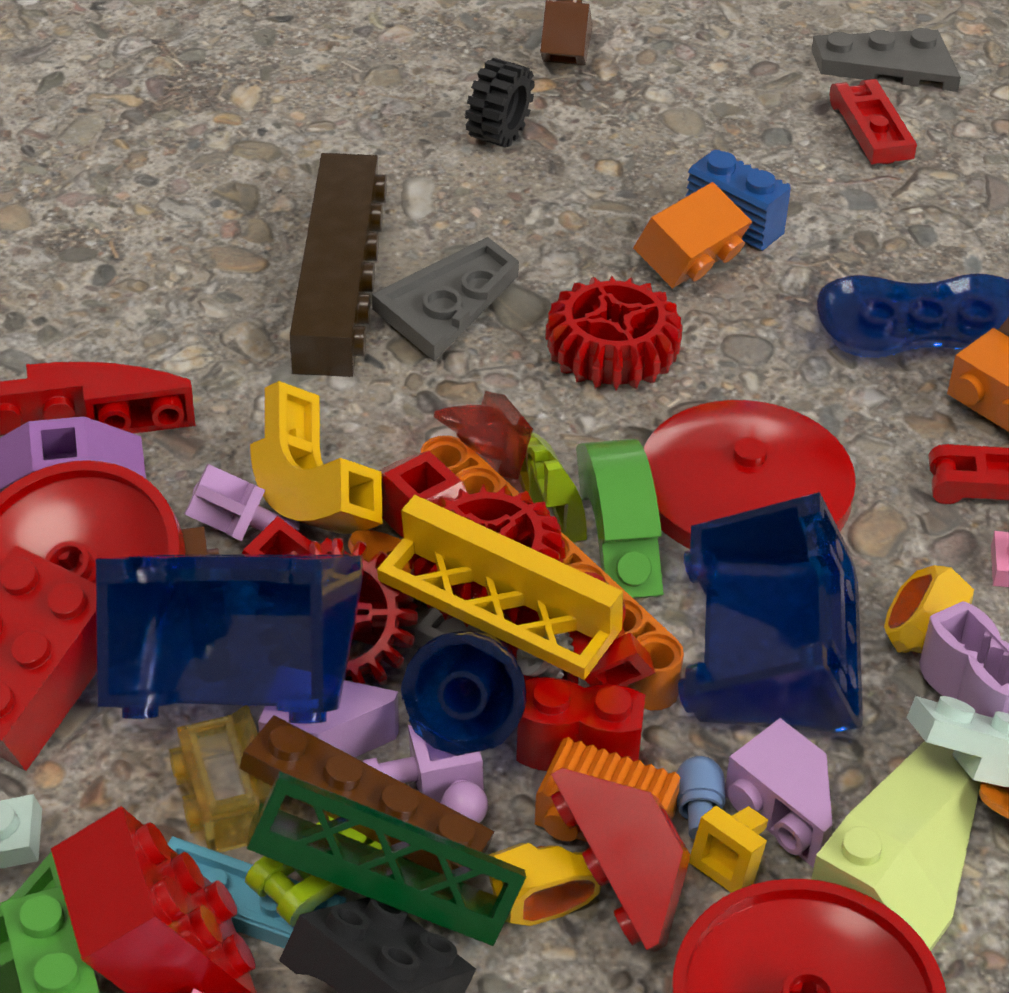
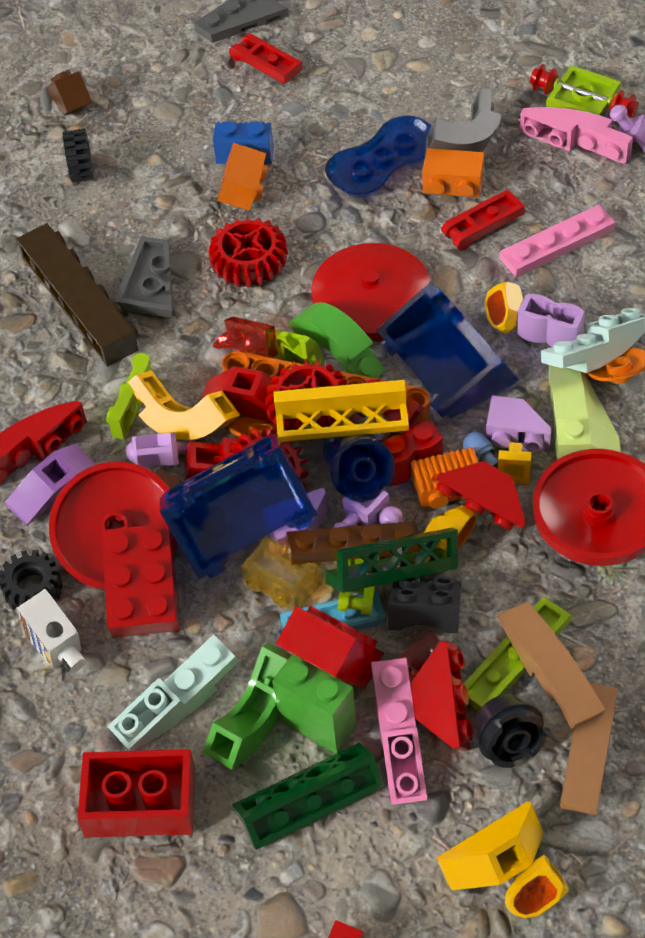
camera: 30 degrees left, 10 degrees up
(231, 434) = (127, 405): none -> lime plate

